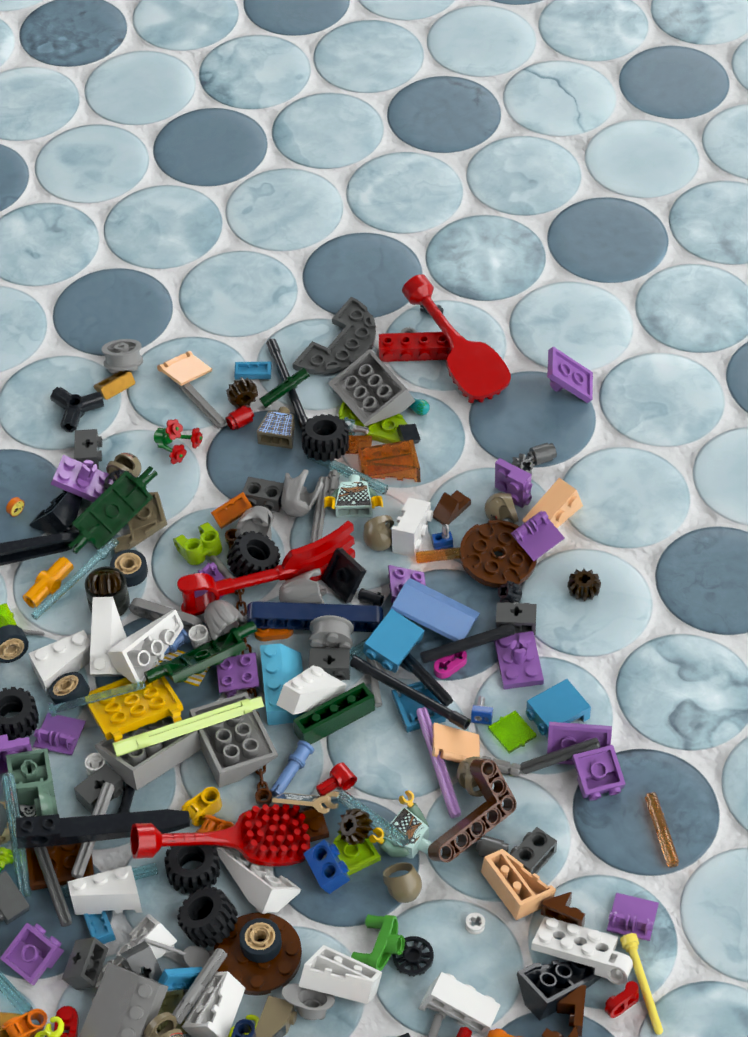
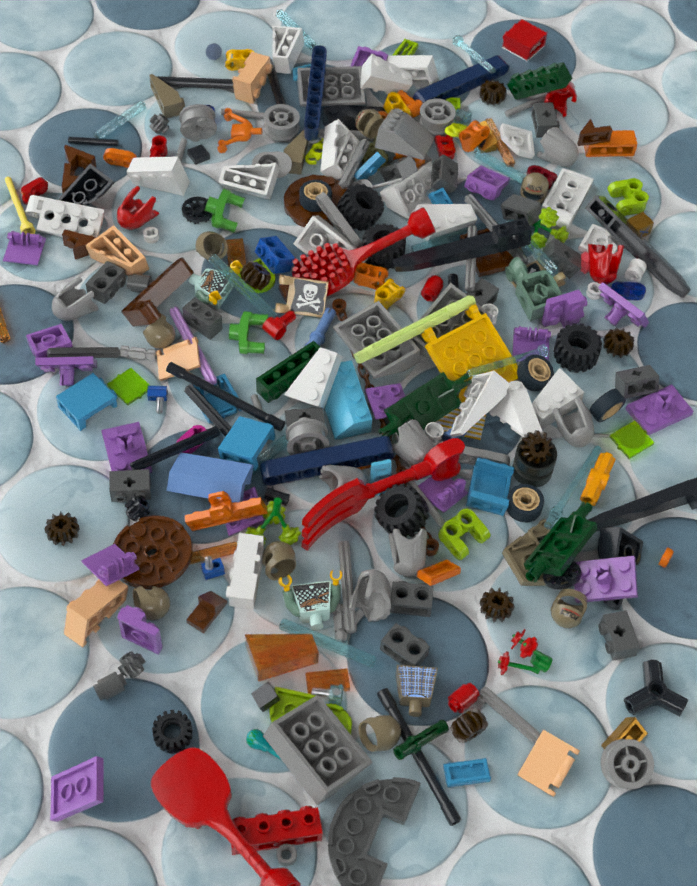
camera: 165 degrees right, 5 degrees up
(48, 626) = (576, 427): none -> light grey hair
(151, 802) = (432, 288): none -> red brick
(160, 580) = (489, 486): none -> dark azure panel
(187, 483) = (496, 605): none -> dark brown gear
(240, 895) = (337, 219): none -> light grey beam
(264, 592) = (384, 468): none -> medium azure slope
(279, 457) = (401, 651): none -> dark grey brick
(313, 393) = (386, 731): none -> dark tan helmet
(325, 437) = (361, 645): black tyre -> none
(343, 575) = (302, 501): black tile -> none
(369, 558) = (276, 515): none -> lime plant
(373, 885) = (236, 251): none -> clear orange plate
(381, 775) = (241, 331): none -> bright green connector
(425, 567) = (224, 511): none -> orange plate
(427, 794) = (202, 318): none -> dark grey brick
(489, 945) = (134, 213): none -> red hair
(490, 410) = (172, 719): none -> black tyre
(569, 821) = (73, 302): none -> light grey hair

